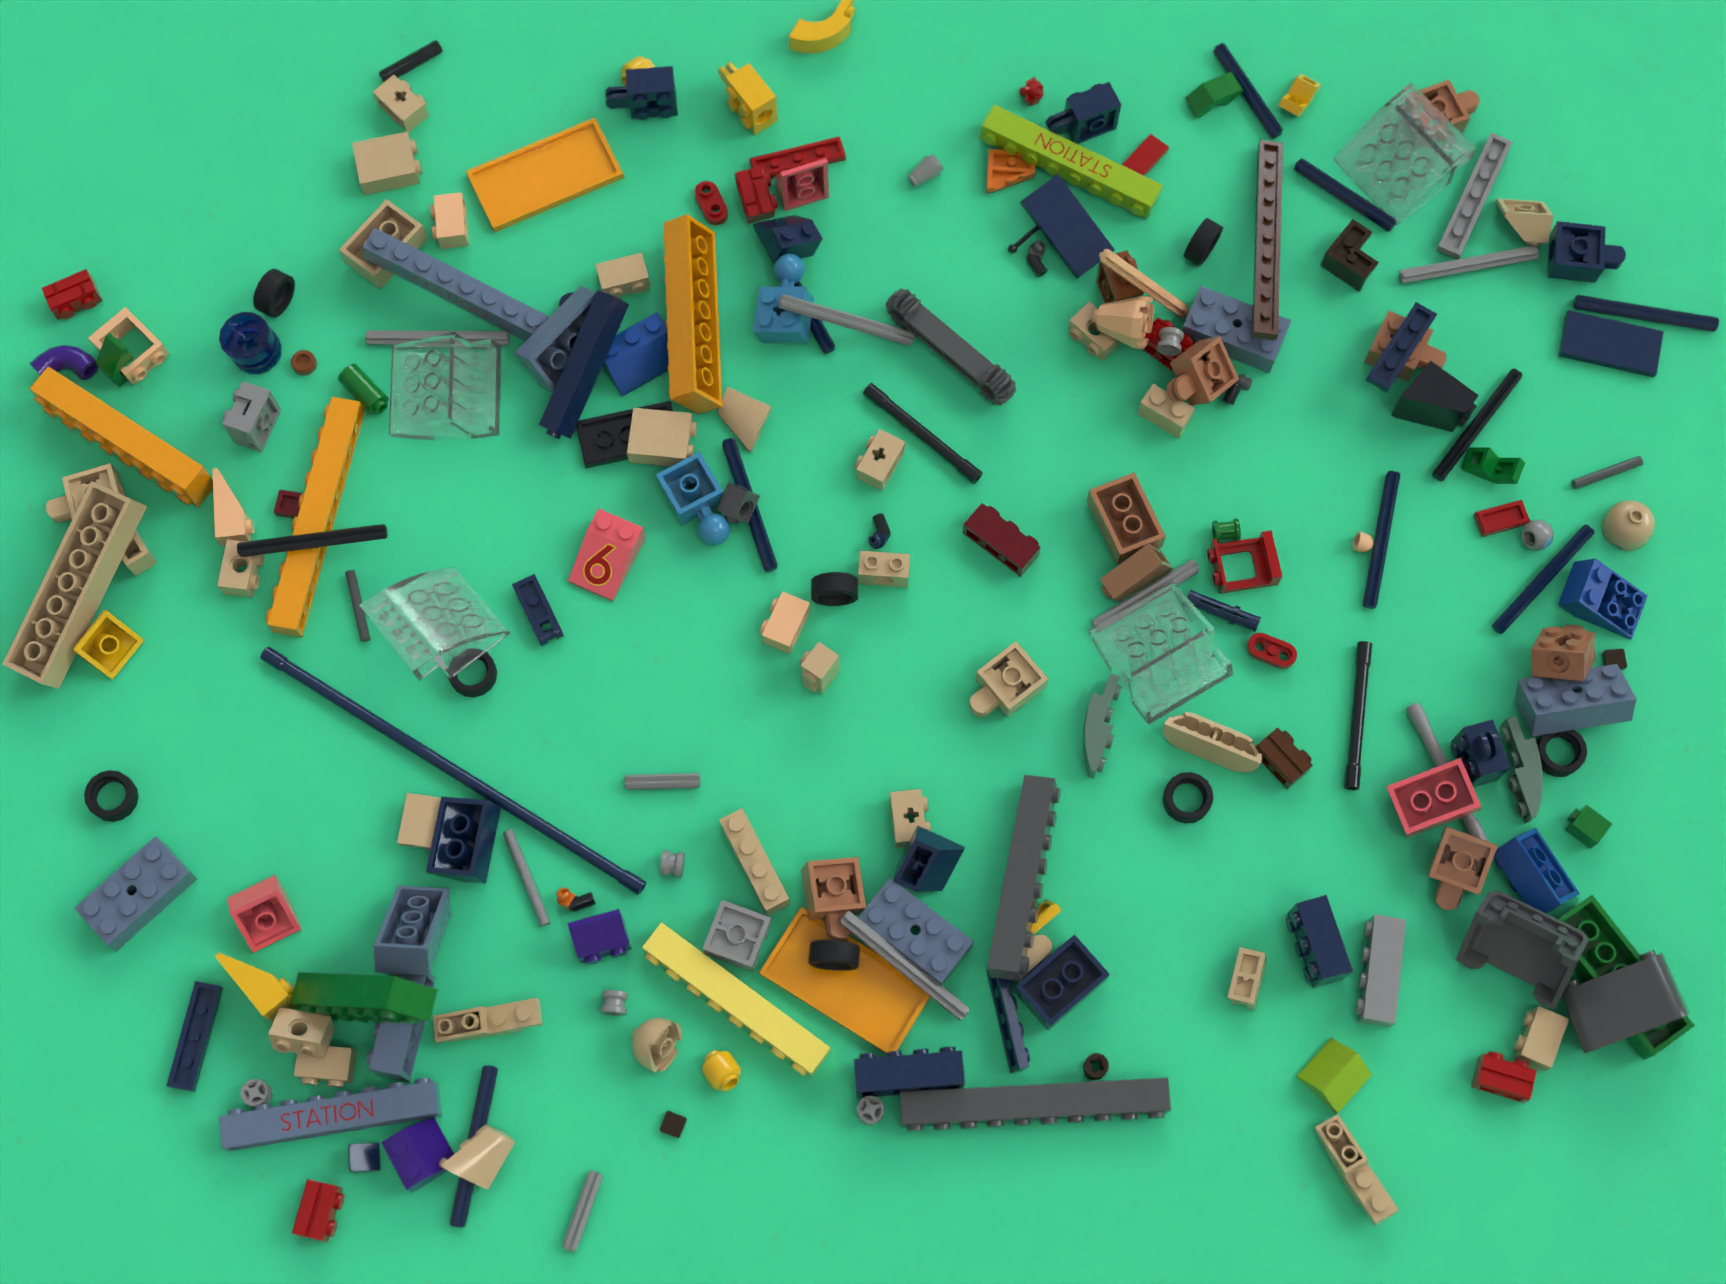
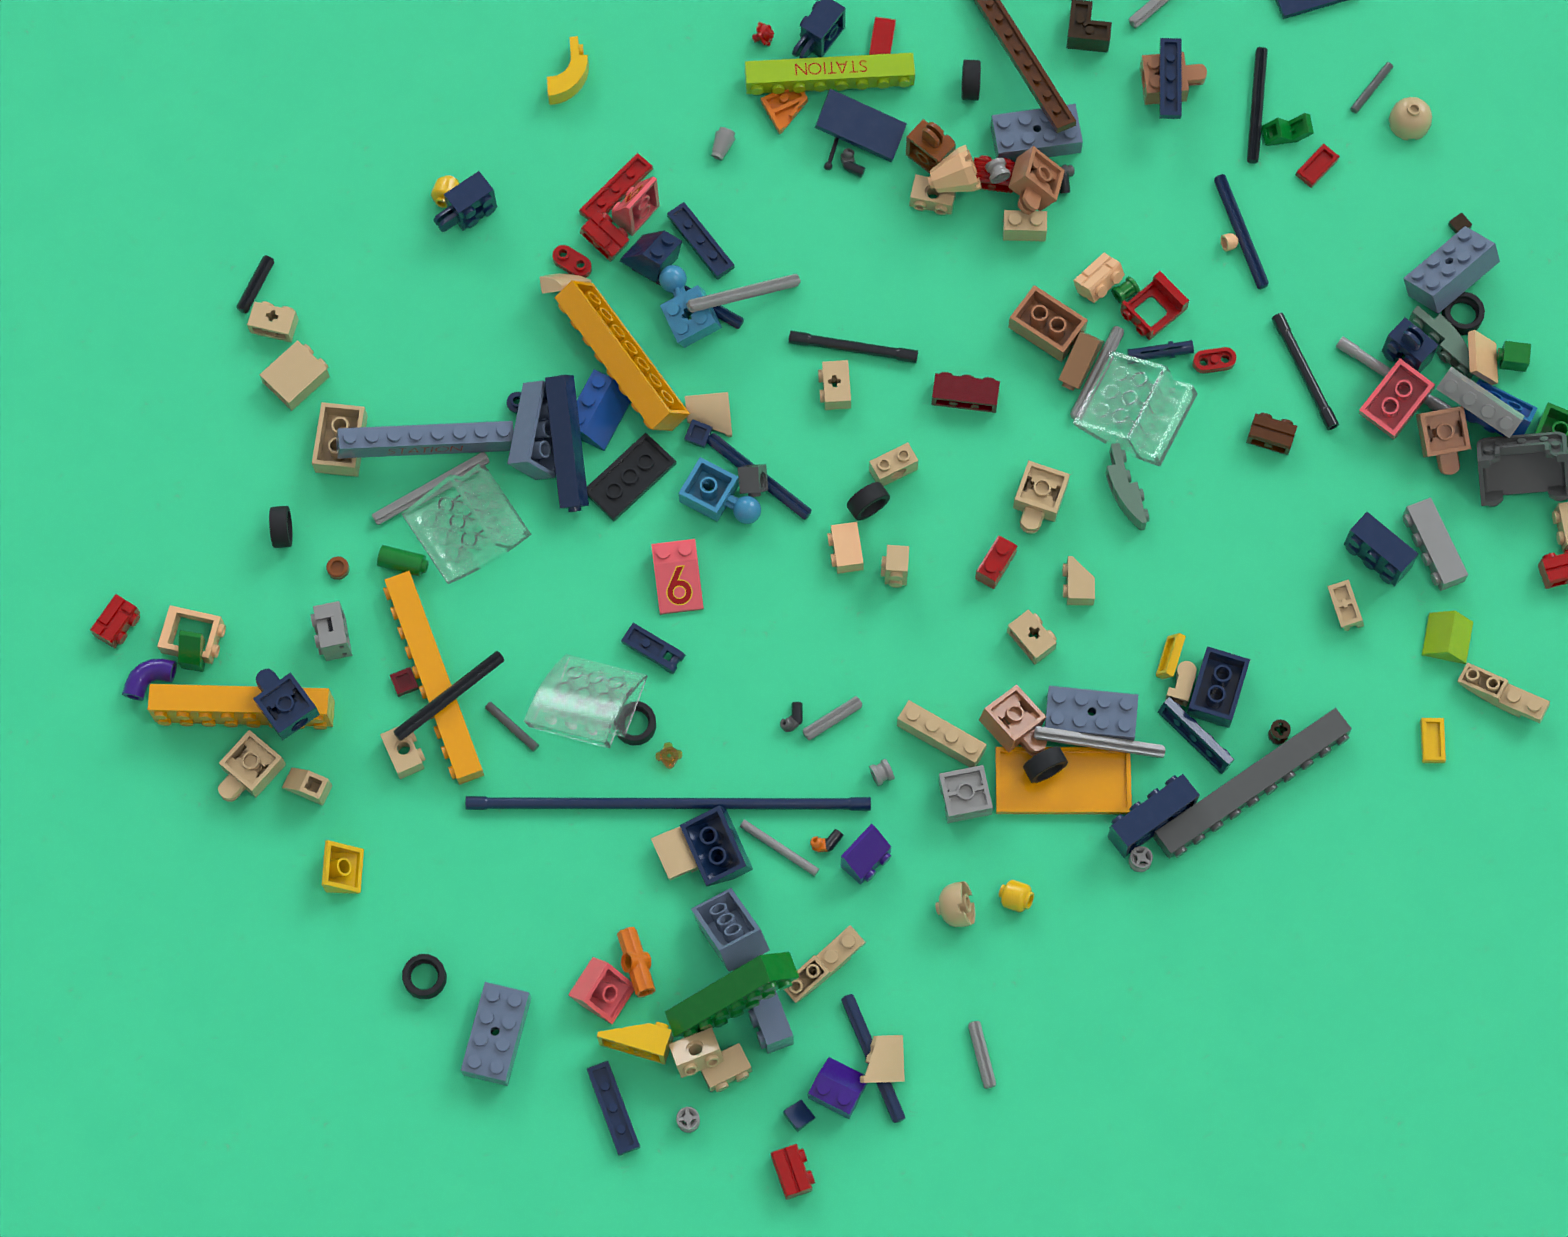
camera: 30 degrees left, 0 degrees up
(74, 585) = (290, 835): tan brick -> none
(146, 455) = (284, 702): none -> dark blue brick
(229, 516) = (366, 715): light nougat slope -> none
(250, 343) = (279, 572): clear blue wheel -> none
(312, 905) = (636, 962): none -> orange piece
(330, 1115) = (754, 1101): sand blue brick -> none
(450, 220) = (378, 391): light nougat brick -> none
(489, 726) = (669, 762): none -> clear orange plate
(544, 174) = (425, 313): light orange tile -> none
(613, 1002) = (906, 896): light grey wheel -> none
(623, 275) = (544, 357): tan brick -> none
(624, 761) = (794, 720): none -> arm
(660, 437) = (661, 463): tan brick -> none
(672, 209) = (557, 282): none -> tan slope
(673, 1124) = (1006, 955): dark brown piece -> none
(718, 430) = (698, 433): none -> dark blue plate
(736, 999) = (993, 840): light yellow brick -> none
(749, 97) = (548, 161): yellow brick -> none
(843, 250) = (700, 240): none -> dark blue plate
(882, 533) = (873, 439): arm -> none
(921, 723) = (996, 562): none -> red brick
(927, 861) = (1067, 658): dark blue slope -> none
(987, 377) = (881, 276): dark grey arm -> none
(990, 794) = (1080, 584): none -> tan slope
(1022, 878) = (1144, 629): dark grey brick -> none
(1144, 283) = (954, 137): light nougat axle -> none
(1198, 781) = (1223, 486): black tyre -> none
(1206, 503) = (1099, 278): none -> light nougat brick
(1212, 742) = (1215, 451): tan brick -> none
(1251, 1173) = (1433, 740): none -> yellow tile
(1436, 400) = (1218, 103): black slope -> none
(1517, 852) = (1480, 402): none -> light grey brick
(1537, 535) = (1351, 163): light grey piece -> none
(1543, 579) = (1374, 194): dark blue axle -> none
(1552, 808) = (1482, 357): none -> light nougat tile
(1563, 653) = (1423, 239): nougat brick -> none
(1602, 598) = (1424, 183): blue slope -> none

